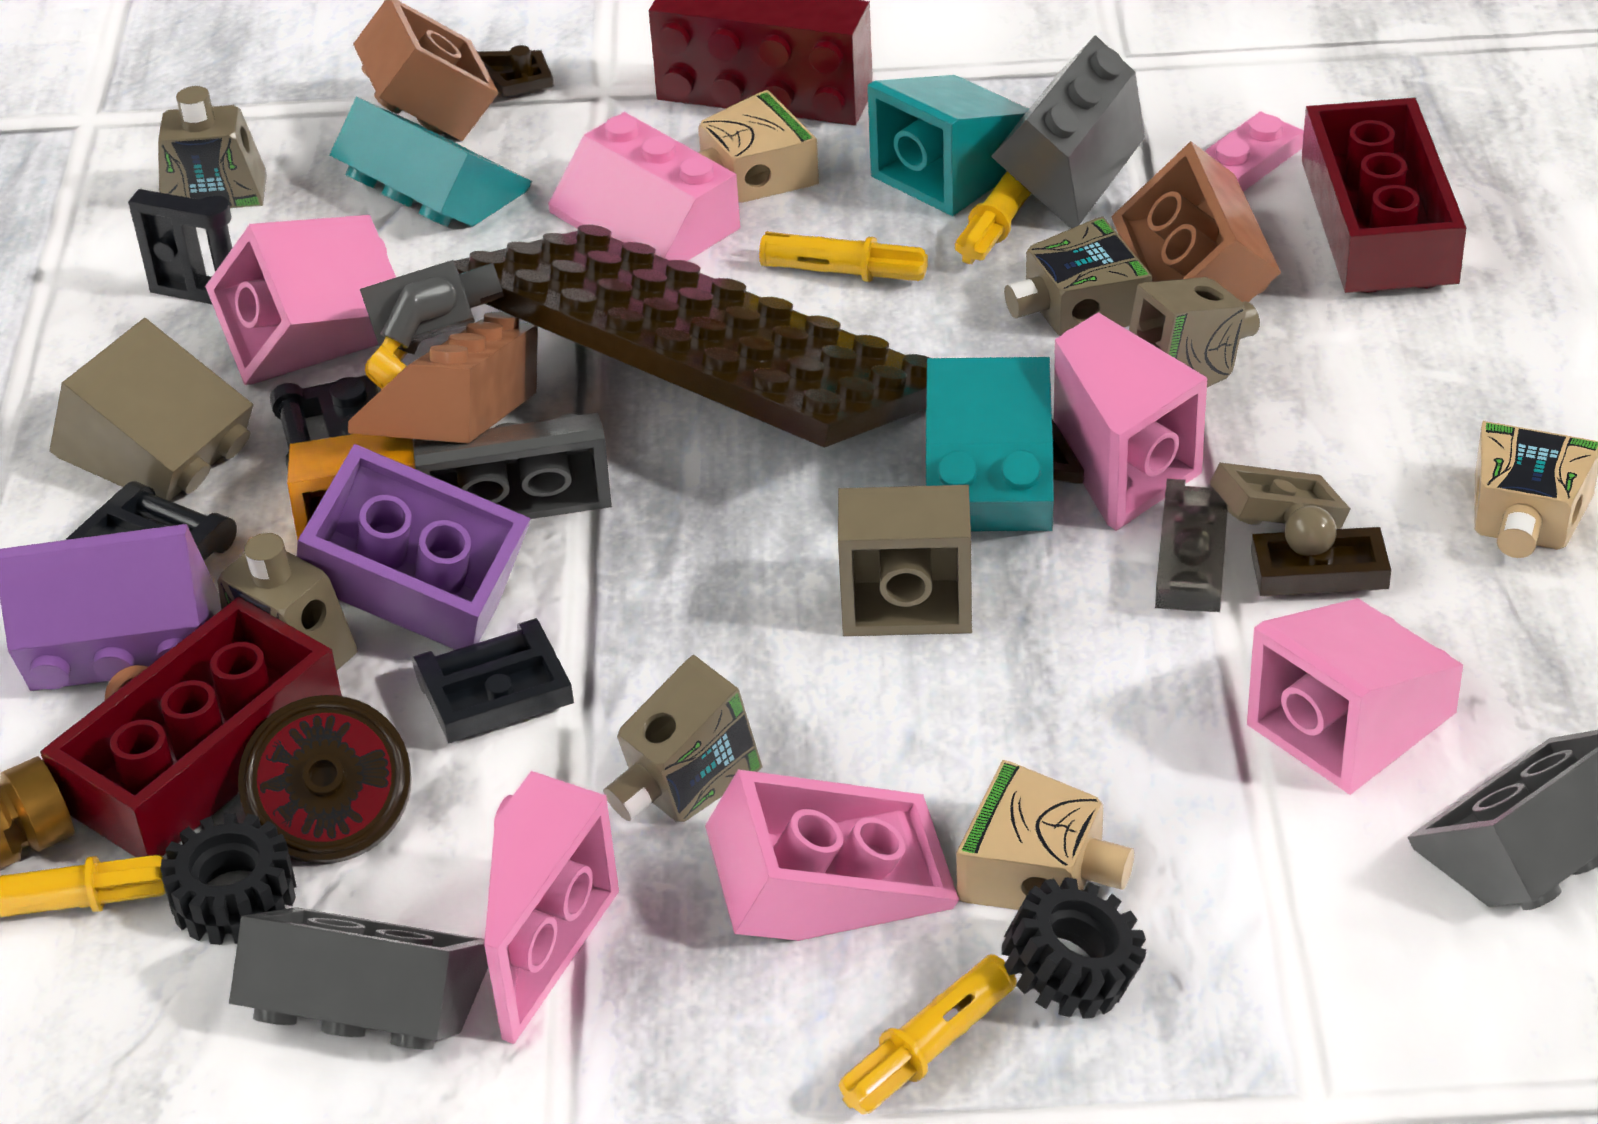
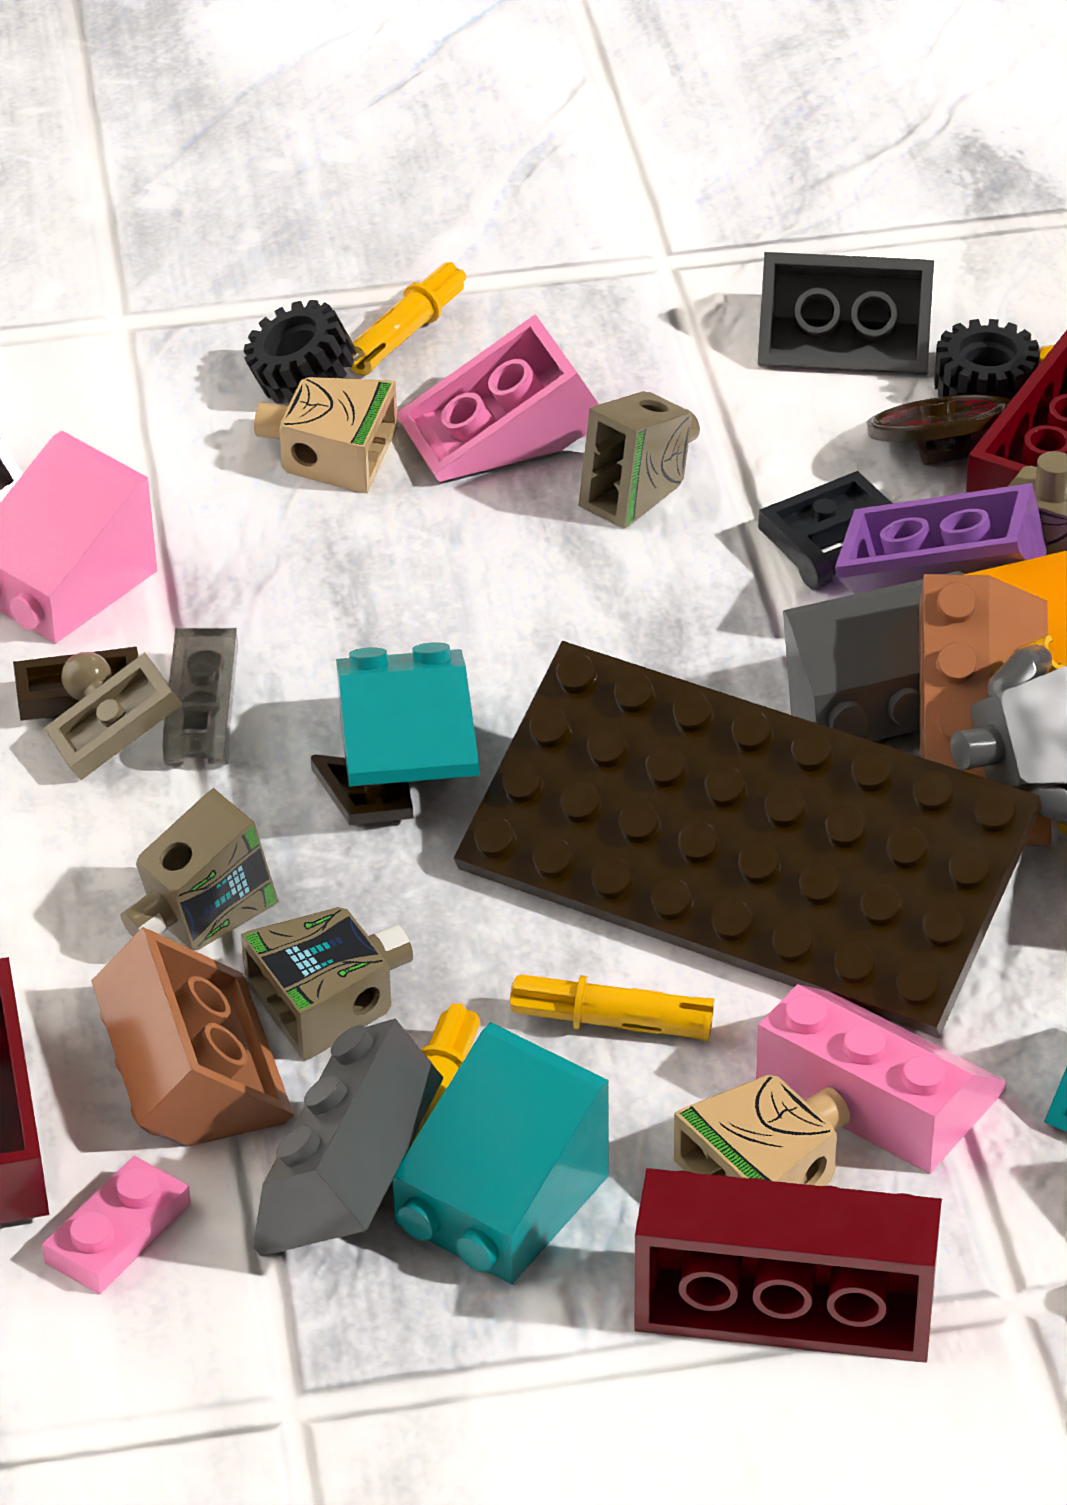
camera: 170 degrees right, 0 degrees up
(546, 891) = (718, 336): bright pink slope -> none
(905, 560) = (476, 594): dark tan brick -> none
(1127, 416) = (269, 754): bright pink slope -> none

